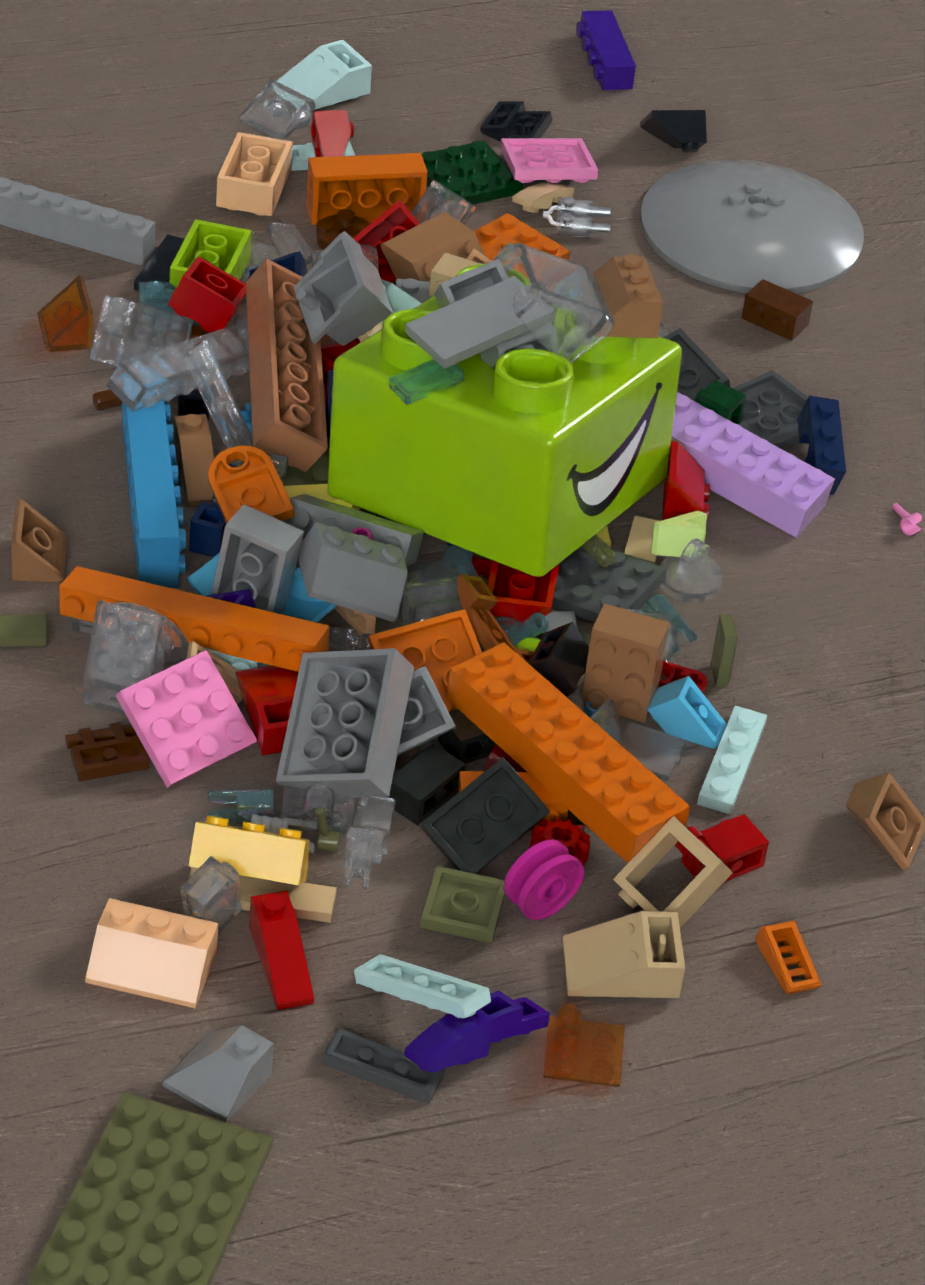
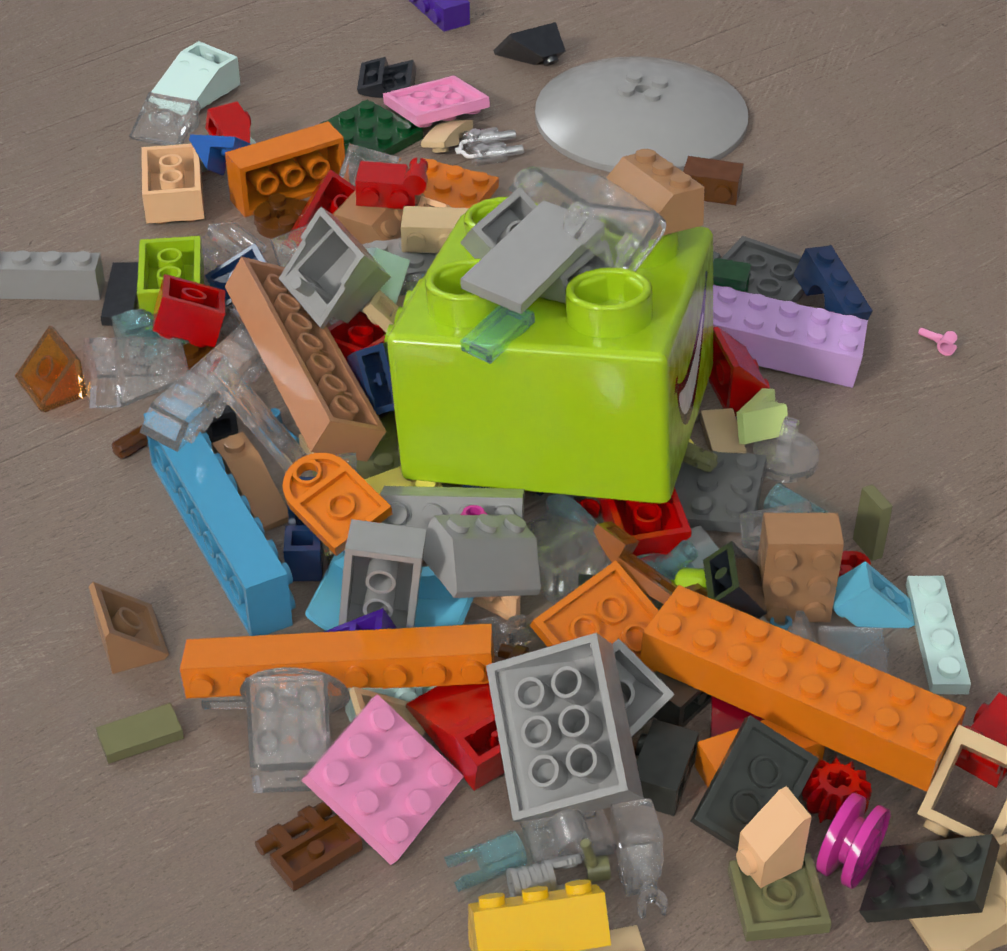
camera: 15 degrees left, 0 degrees up
(300, 150) = (213, 148): none -> blue slope
(445, 228) = (390, 183): none -> red hinge
(472, 856) = (774, 839): none -> light nougat slope
(588, 924) = (930, 879): none -> pearl dark grey plate

